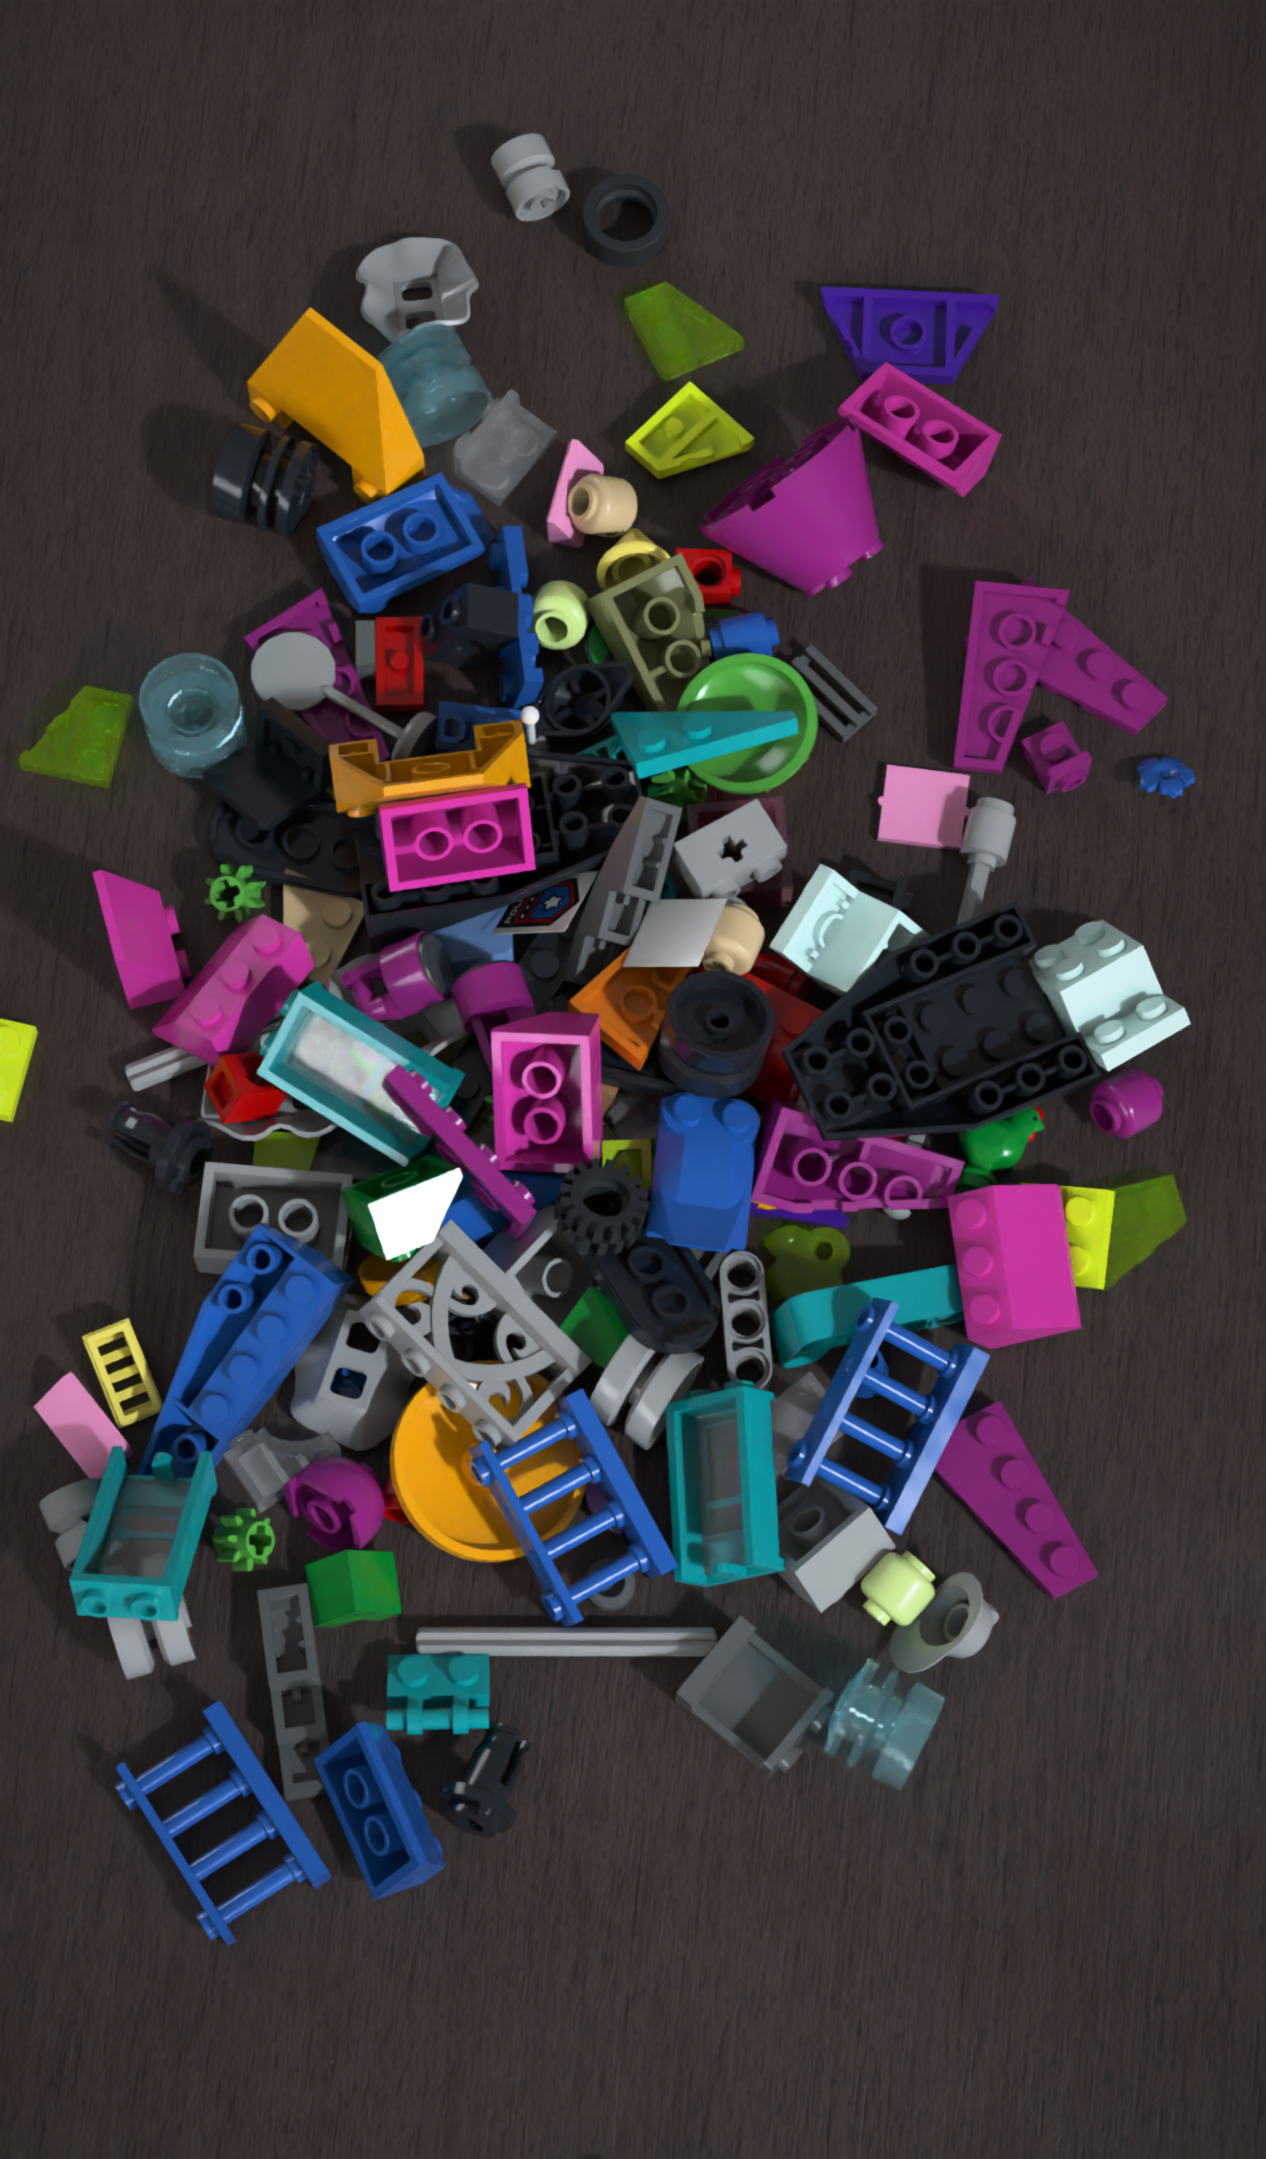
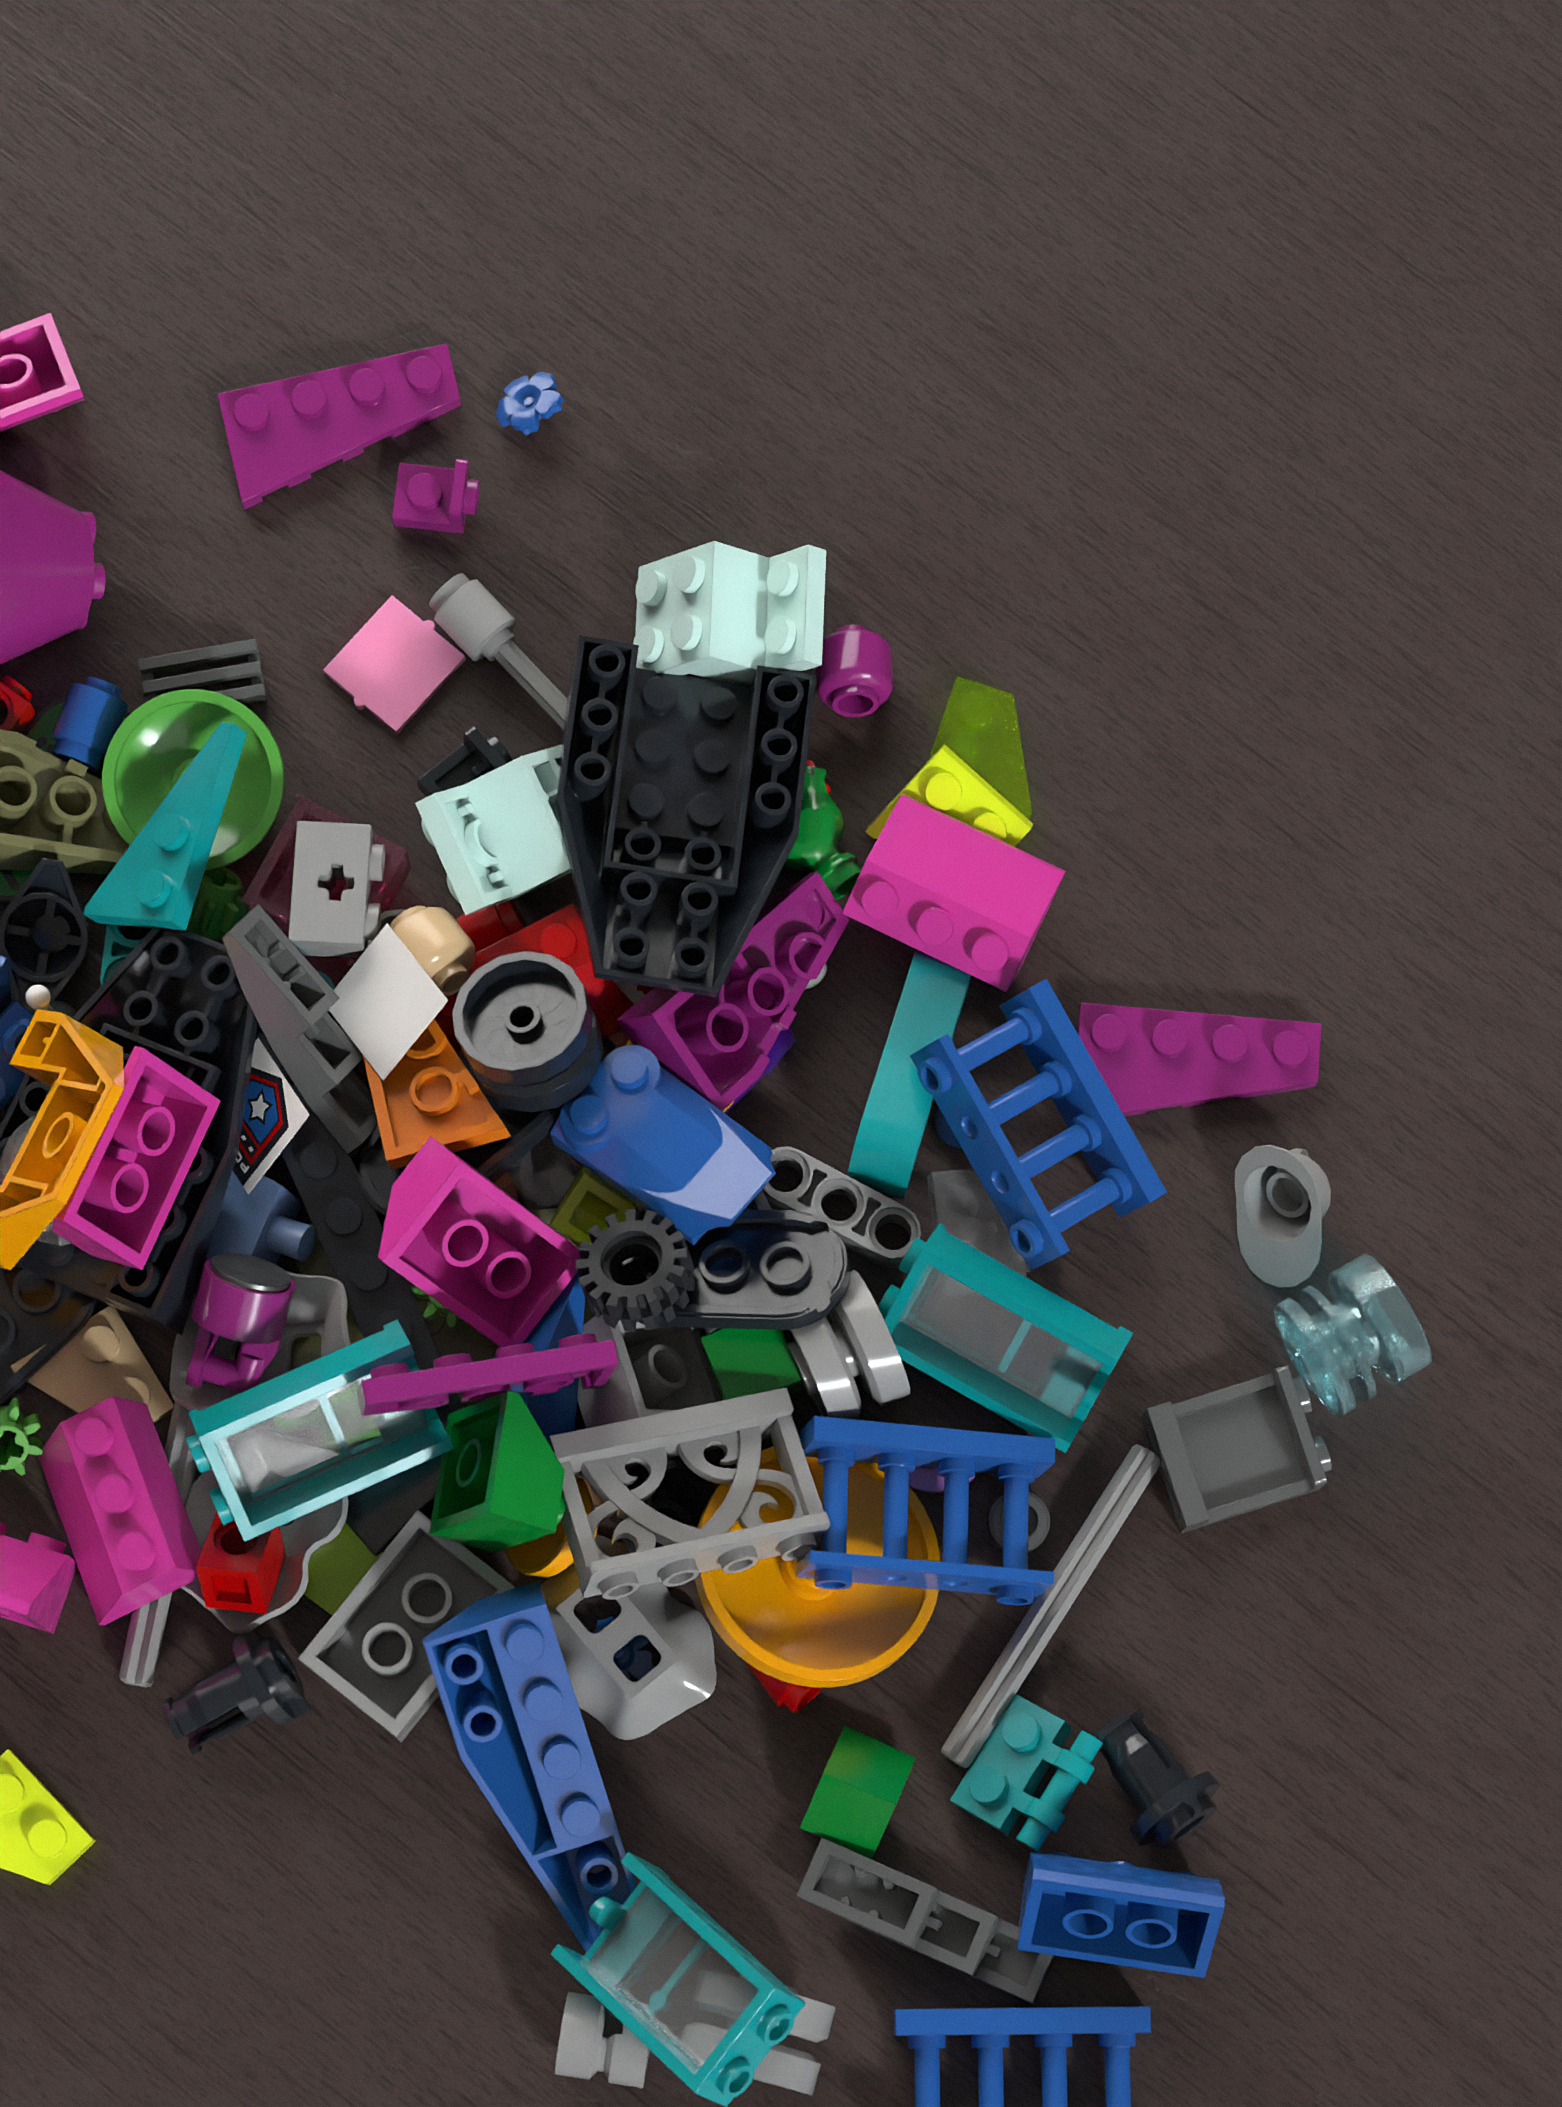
camera: 60 degrees left, 5 degrees up
(81, 1425) = (494, 1974): bright pink slope -> none
(109, 1334) = (406, 1884): light yellow slope -> none
(243, 1539) = (732, 1875): bright green gear -> none
(268, 1463) = (670, 1799): clear arch -> none
(339, 1501) = (758, 1748): magenta cylinder -> none
(491, 997) = (329, 1239): magenta piece -> none
(797, 1264) = (811, 1113): clear neon green plate -> none
(827, 1541) = (1124, 1269): light grey slope -> none
(898, 1589) = (1214, 1232): yellowish green head -> none
(1004, 658) = (293, 473): magenta wing -> none

